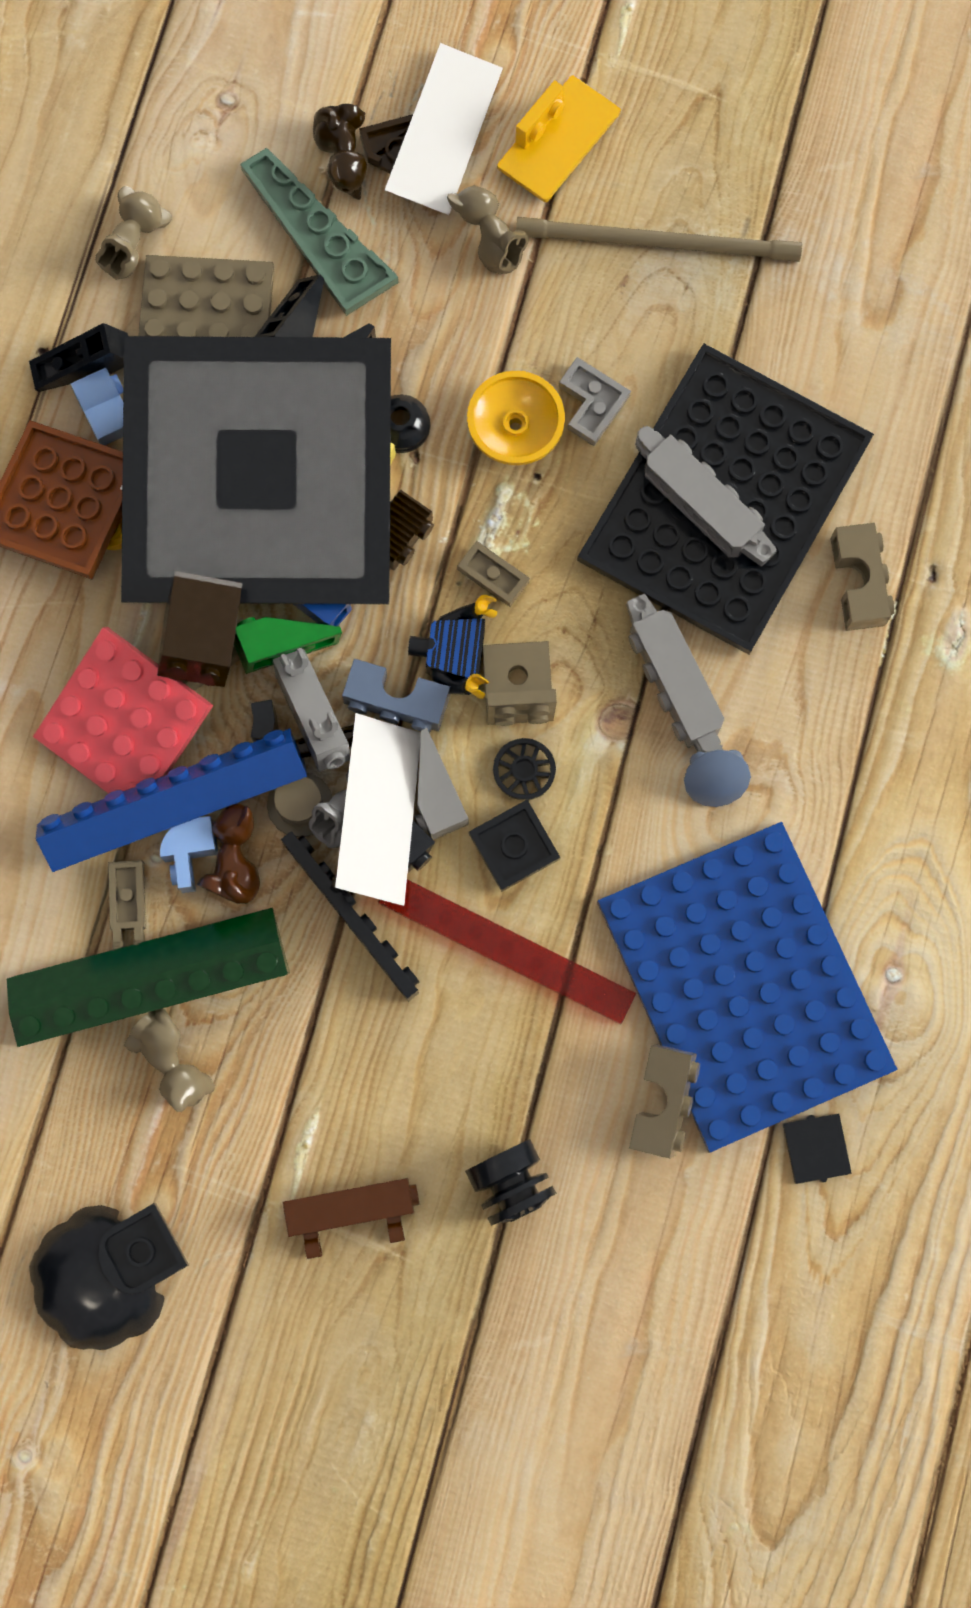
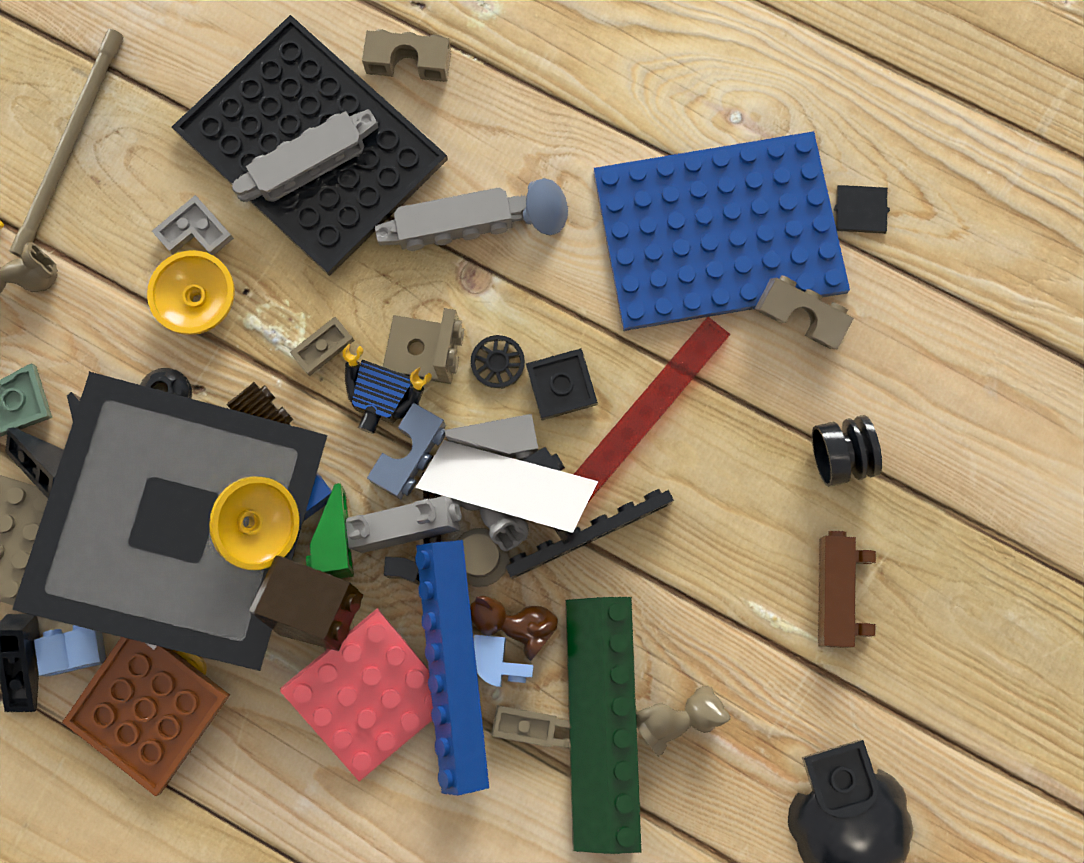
camera: 70 degrees left, 0 degrees up
(265, 570) = (271, 524): none -> yellow dish

